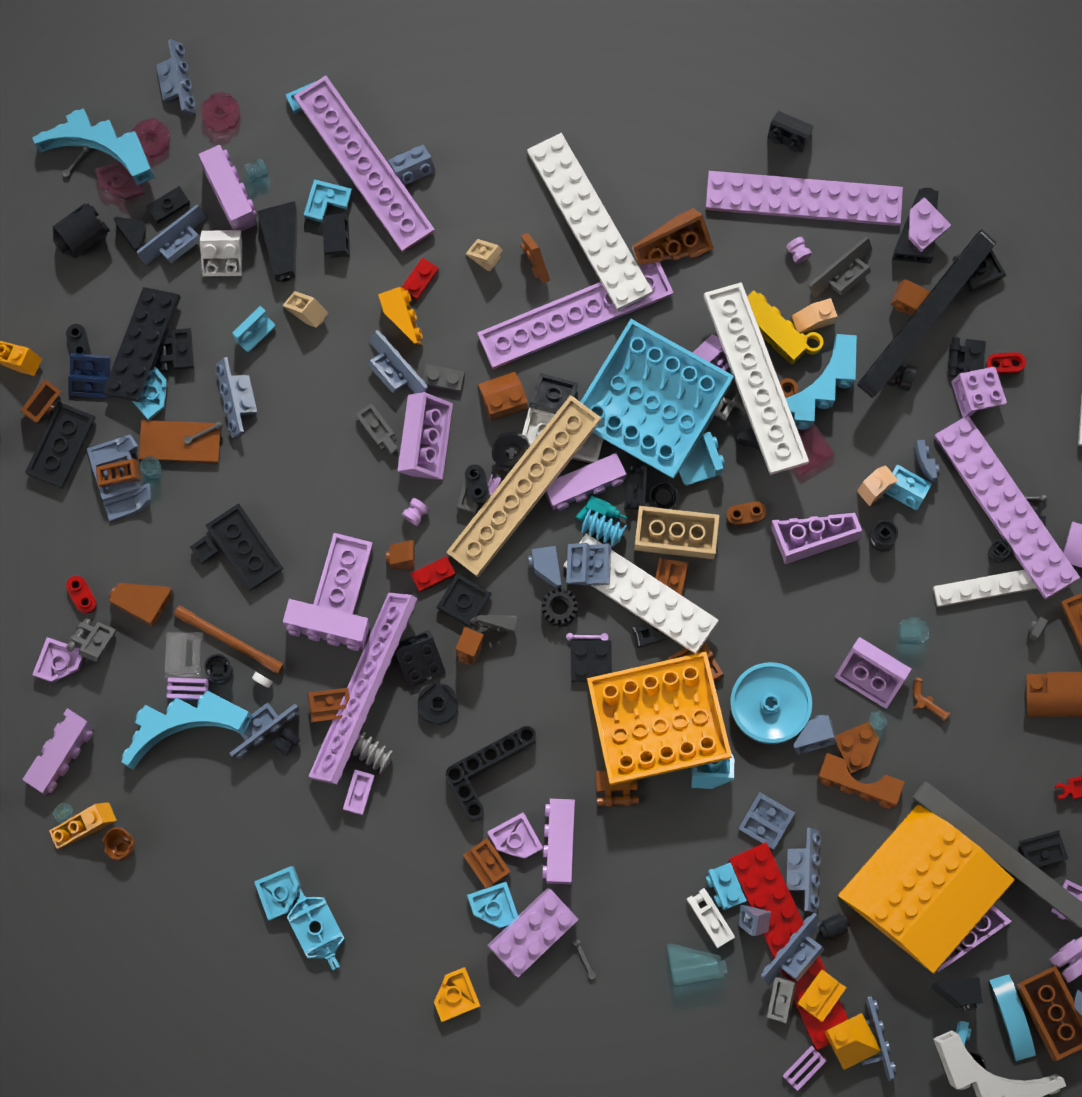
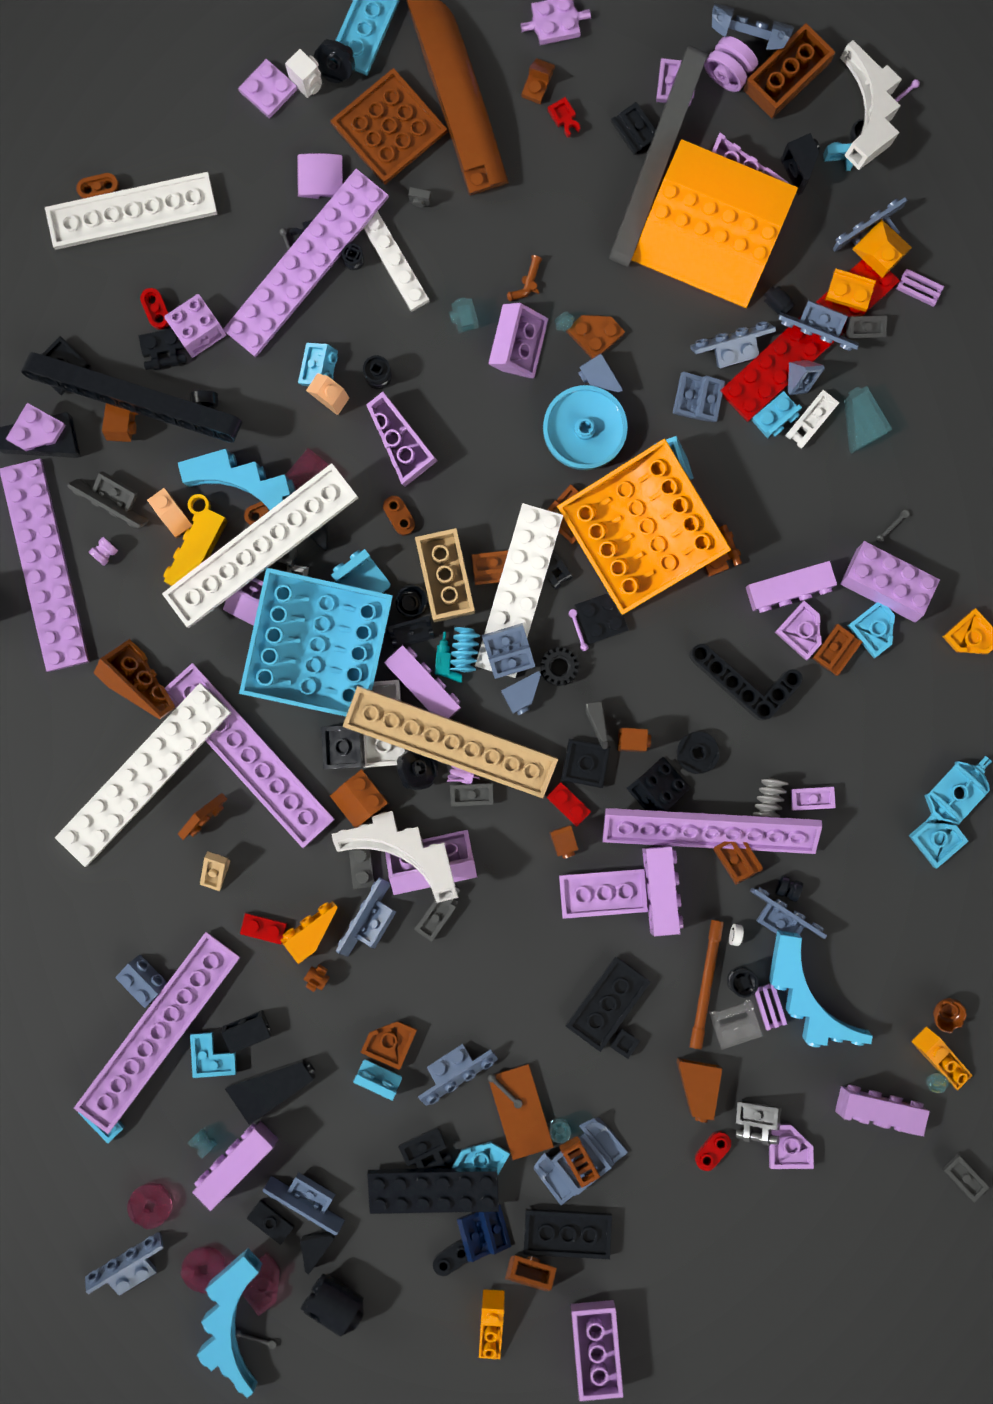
camera: 110 degrees left, 10 degrees up
(221, 253) = (305, 1145): white slope -> none
(280, 350) = (389, 1043): none -> dark orange plate
(306, 309) = (336, 1034): tan slope -> none
(360, 307) = (316, 978): none -> dark orange gear
(415, 511) = (512, 844): lavender wheel -> none
(447, 420) = (406, 844): none -> white arch
(477, 483) = (464, 791): black plate -> none
(835, 773) = (630, 294): dark orange arch -> none
(927, 466) = (291, 349): sand blue slope -> none
(1013, 1017) = (801, 111): medium azure slope -> none

